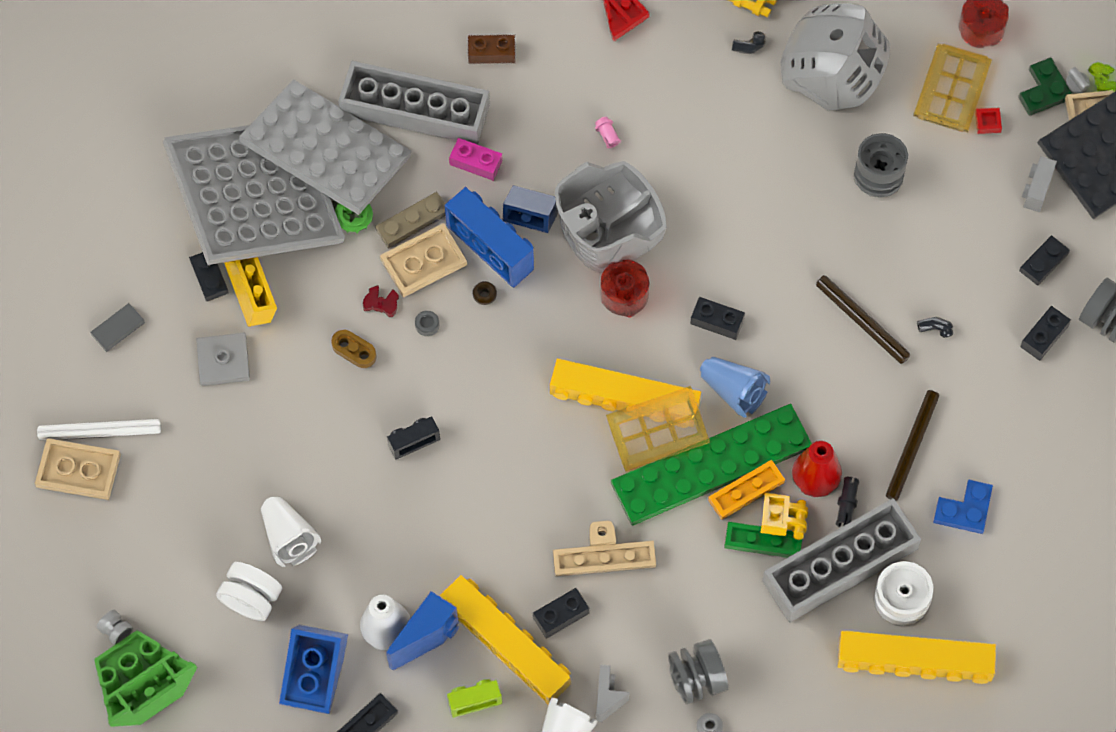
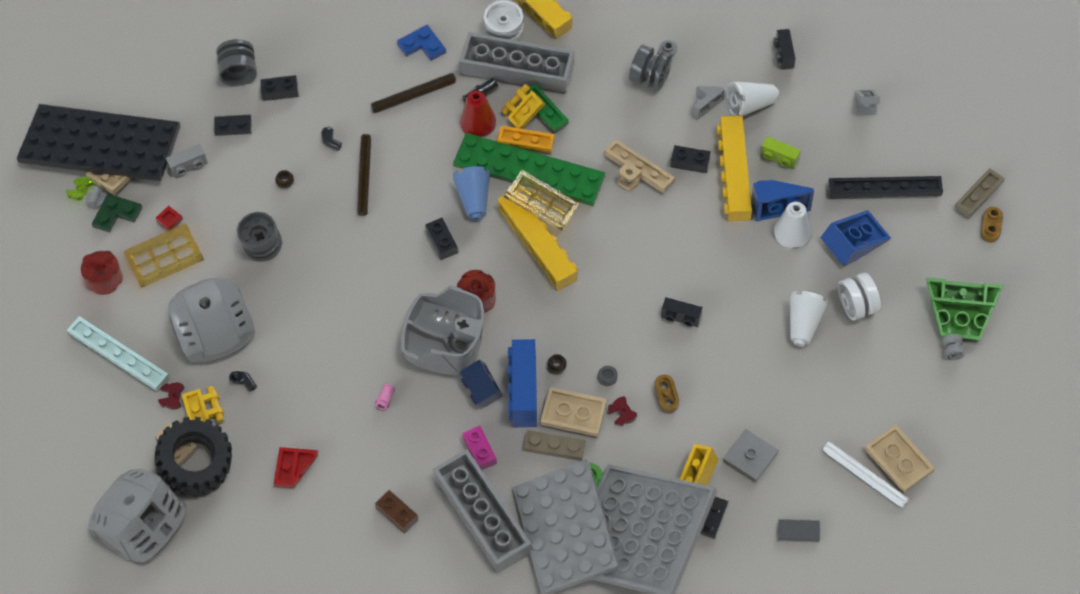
camera: 135 degrees left, 5 degrees down
(930, 243) = (284, 174): none -> dark brown plate

